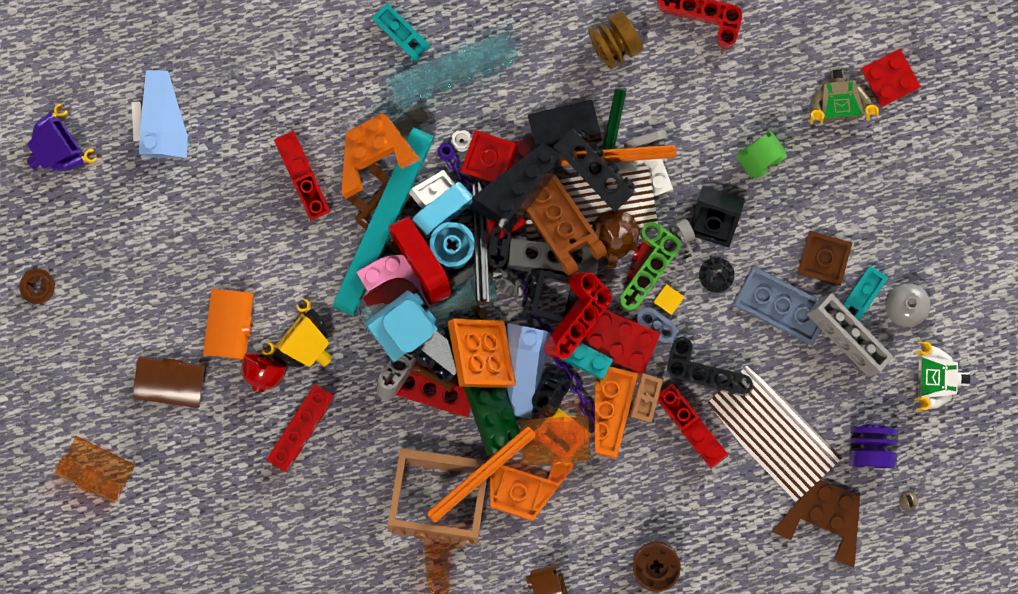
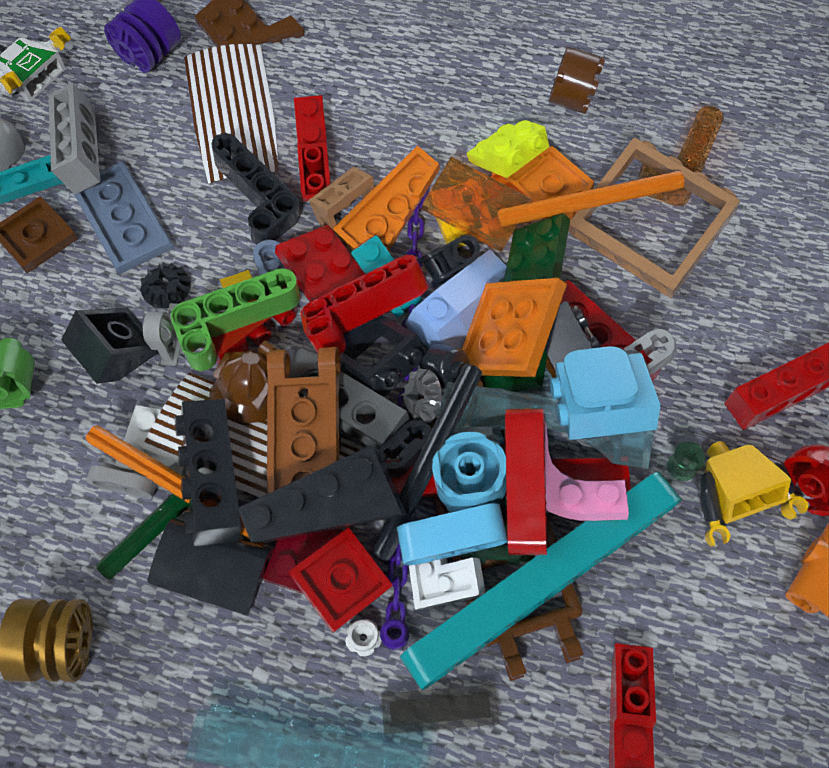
camera: 155 degrees left, 20 degrees down
(336, 334) = (691, 452): none -> clear green bush
(369, 144) = (501, 708): orange wing -> none
(506, 311) = (444, 362): none -> black head
(562, 503) = (510, 148): none -> neon yellow plate
(668, 573) = (444, 44): reddish brown wheel -> none

